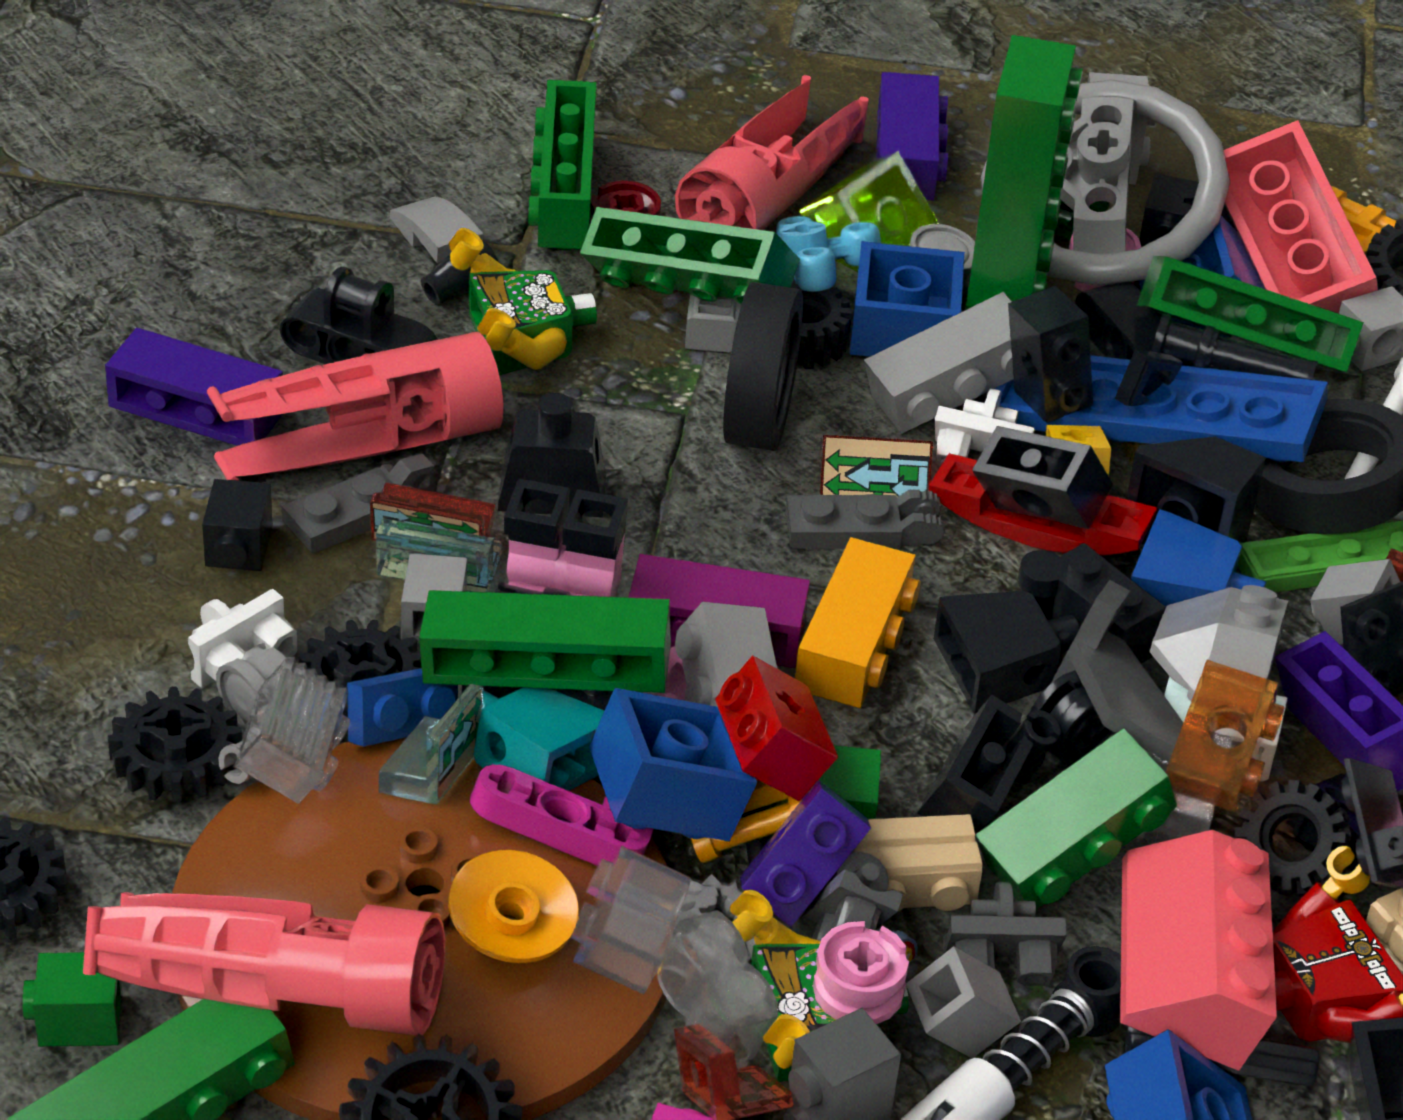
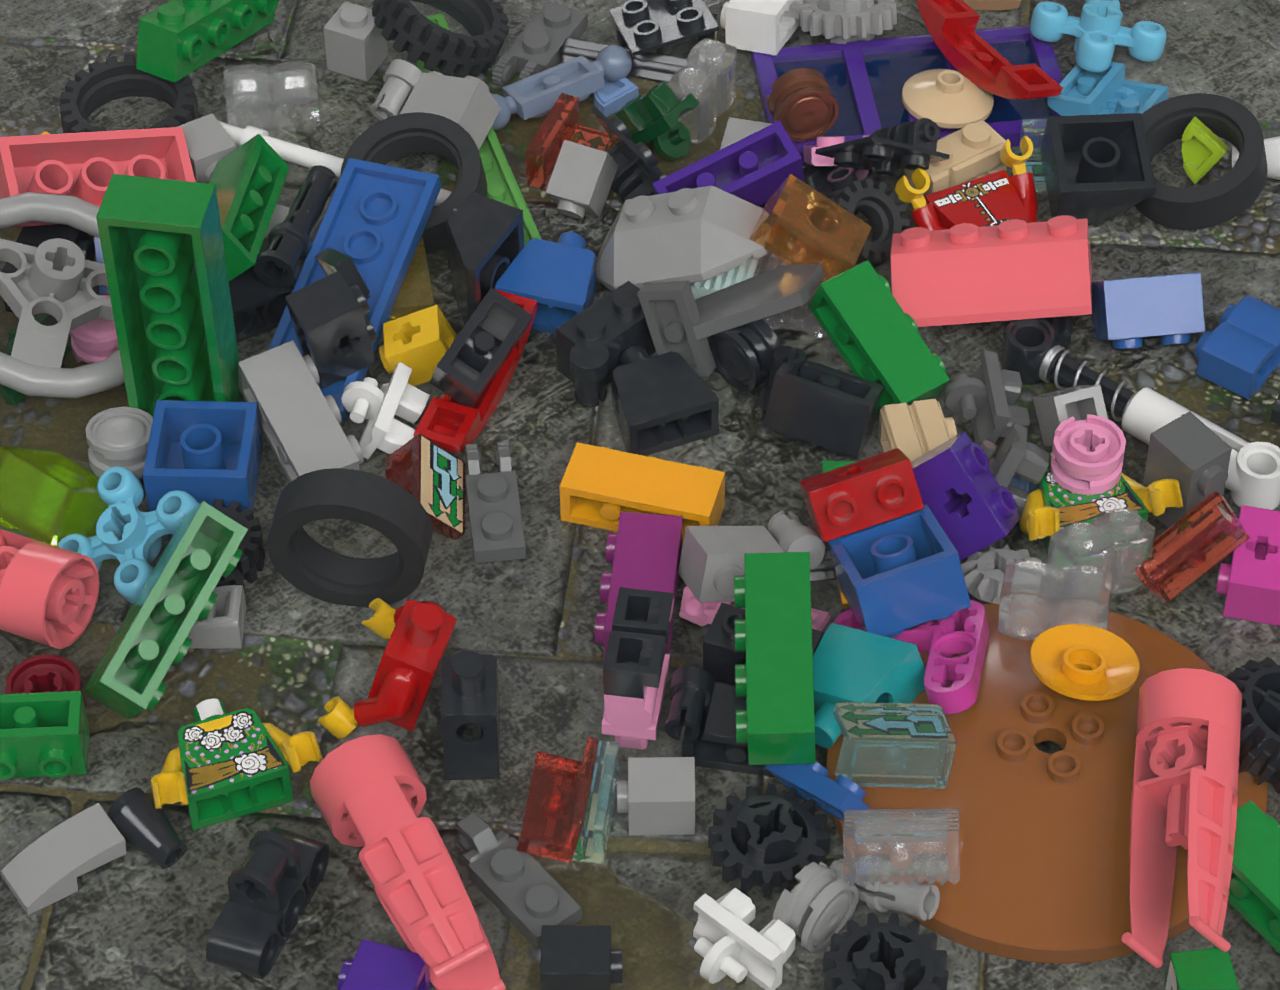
camera: 90 degrees left, 5 degrees up
(638, 423) = (406, 671): none -> red torso

